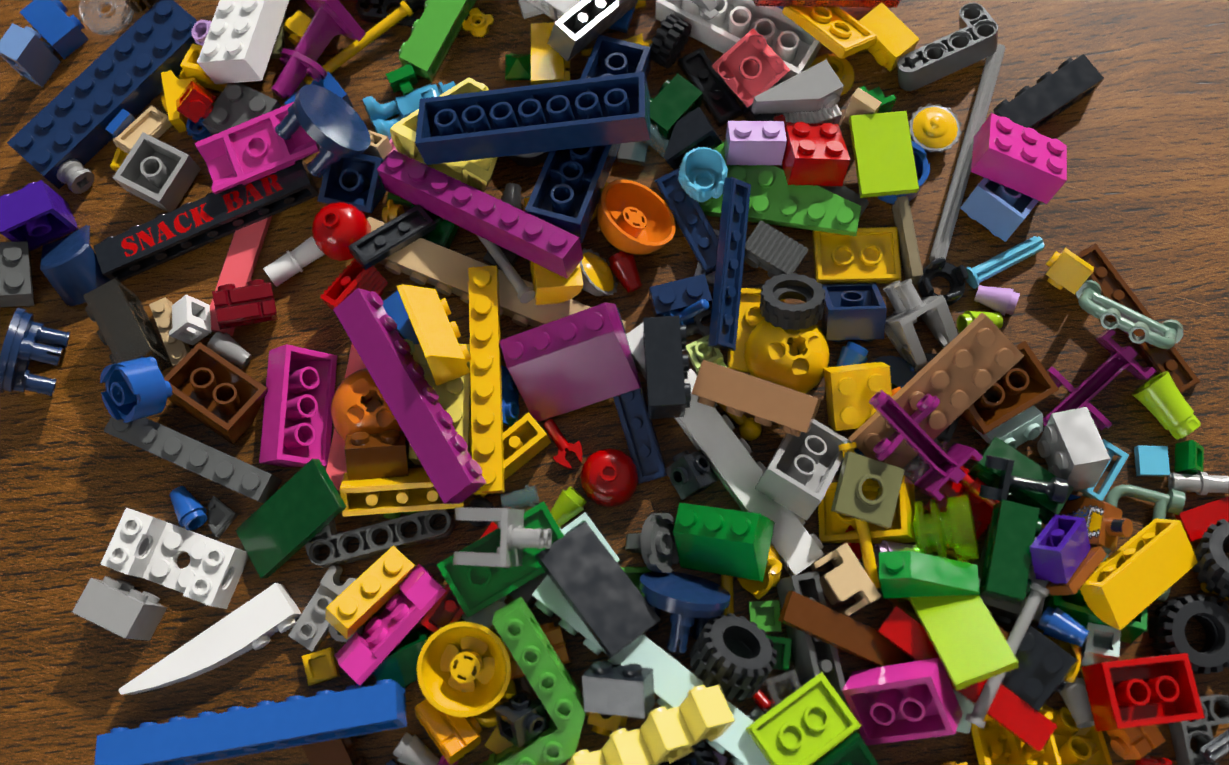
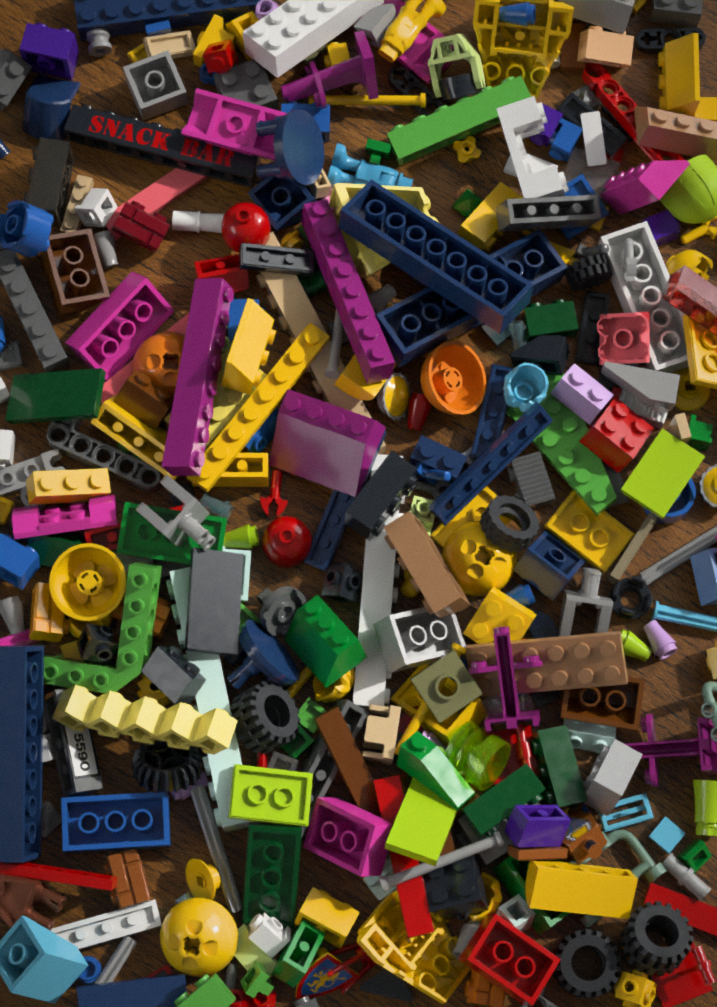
camera: 30 degrees right, 0 degrees up
(651, 27) = (584, 251): none -> dark grey bar
(1055, 489) = (569, 787): black bar -> none
(1062, 627) = (495, 877): blue cone -> none

